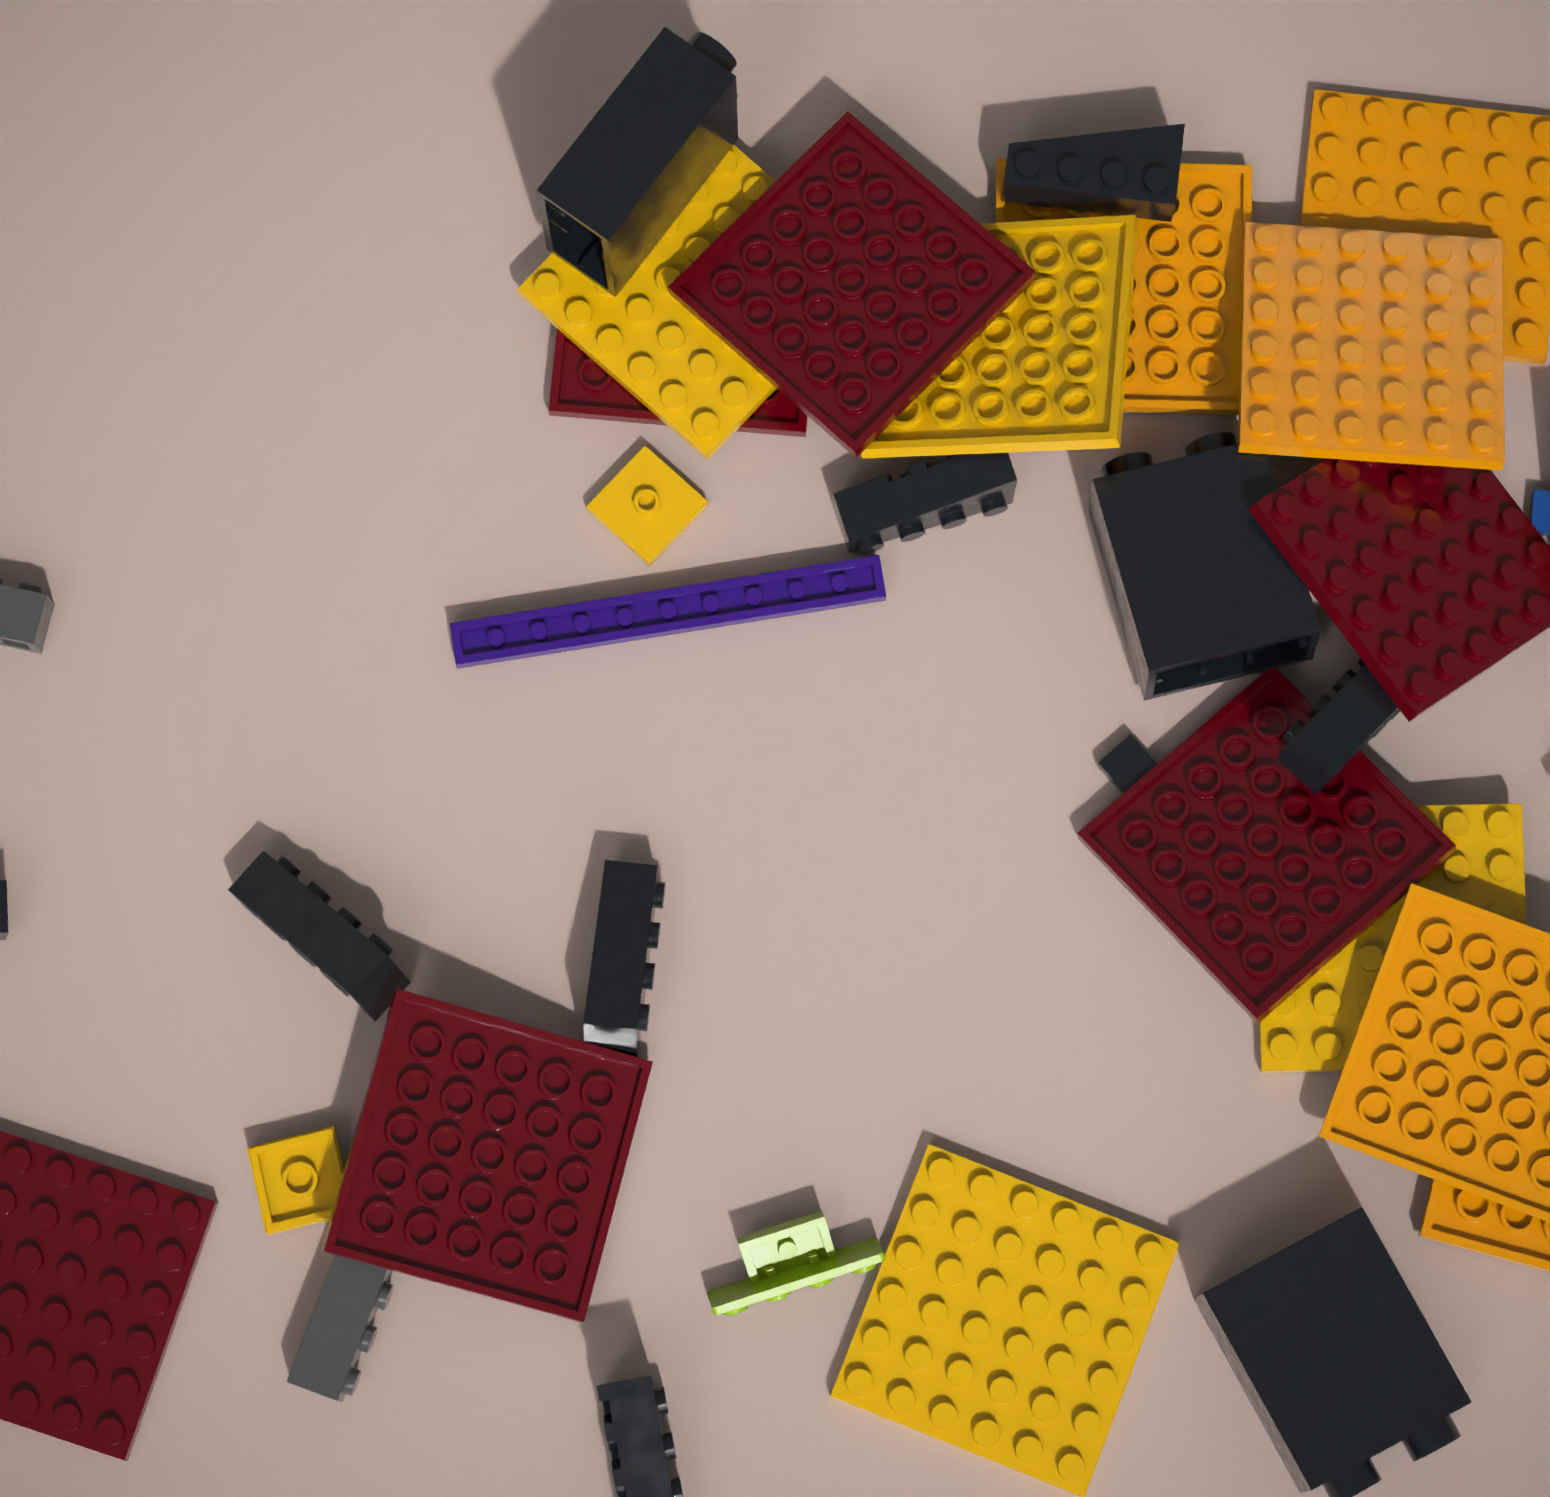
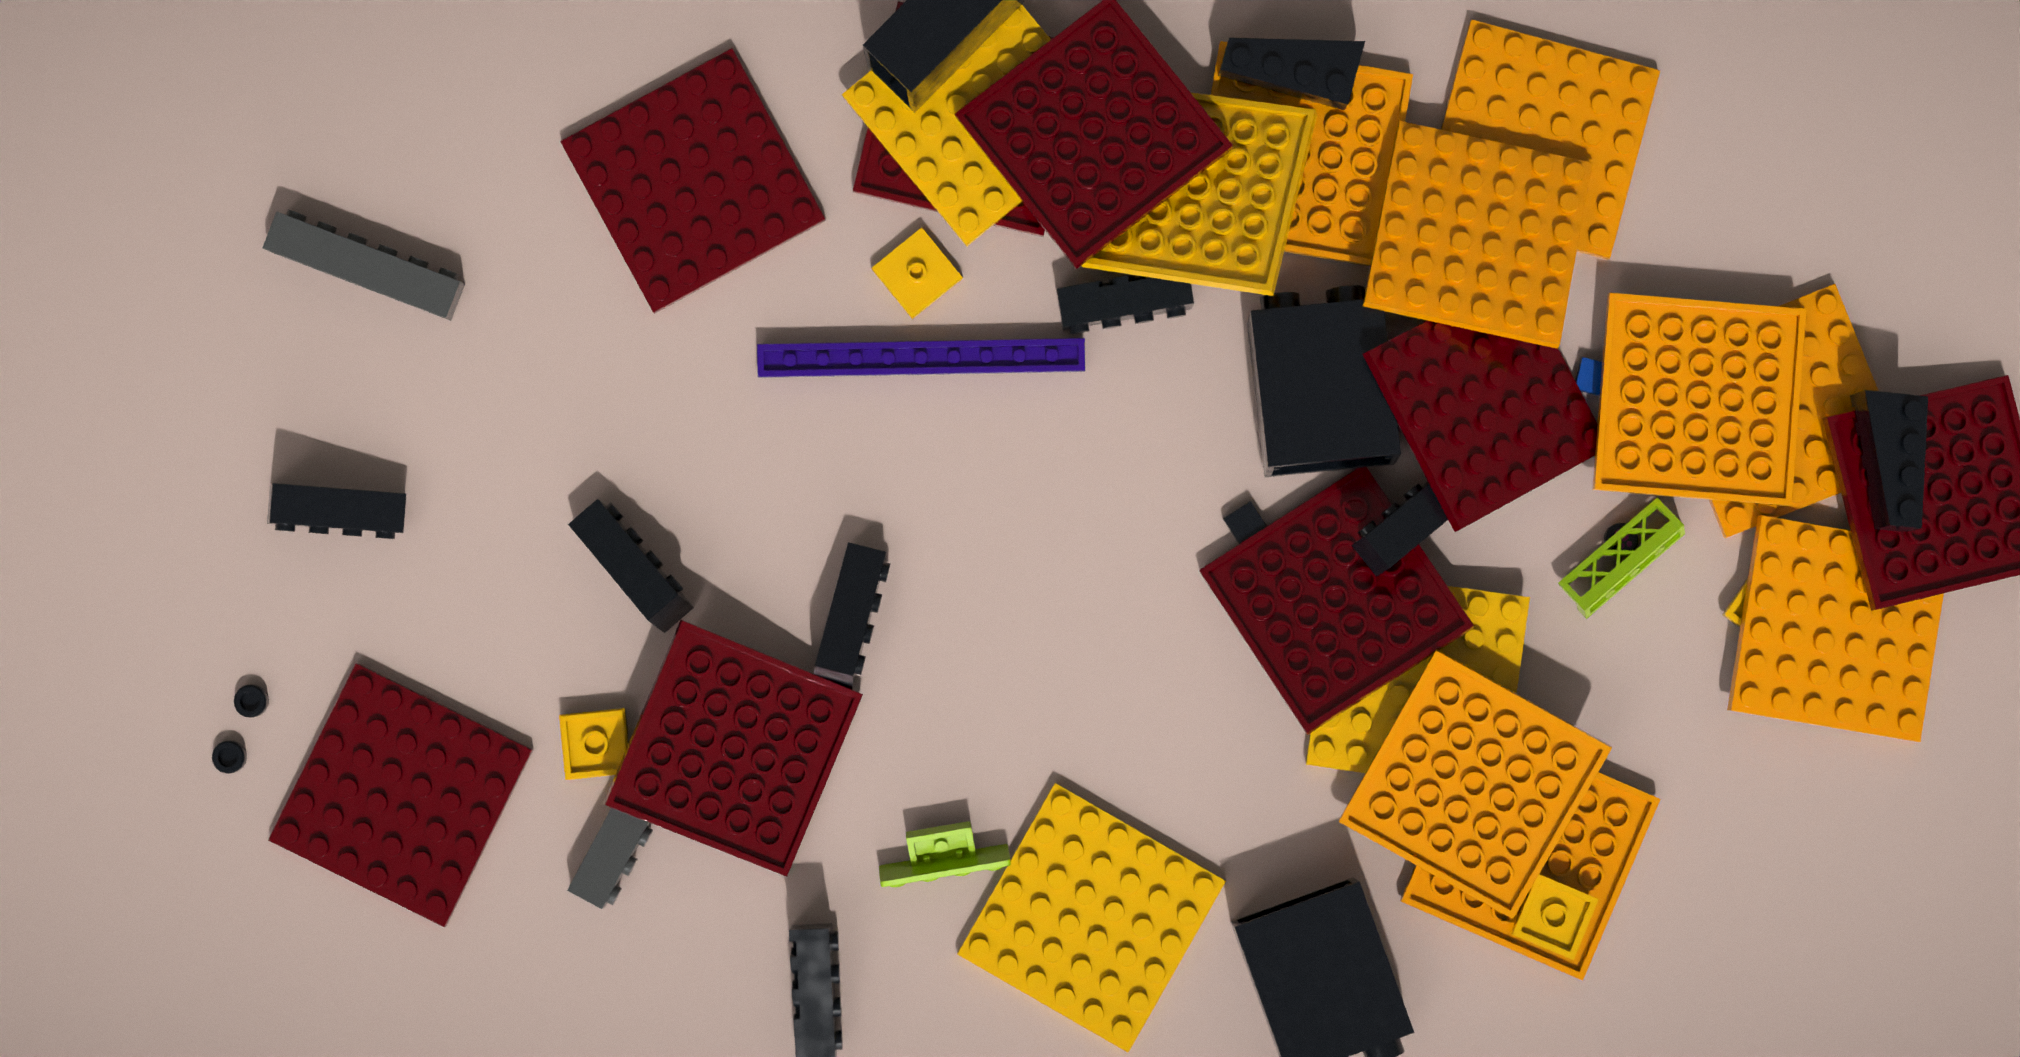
camera: 10 degrees right, 10 degrees up
(338, 430) = (693, 181): none -> dark red plate

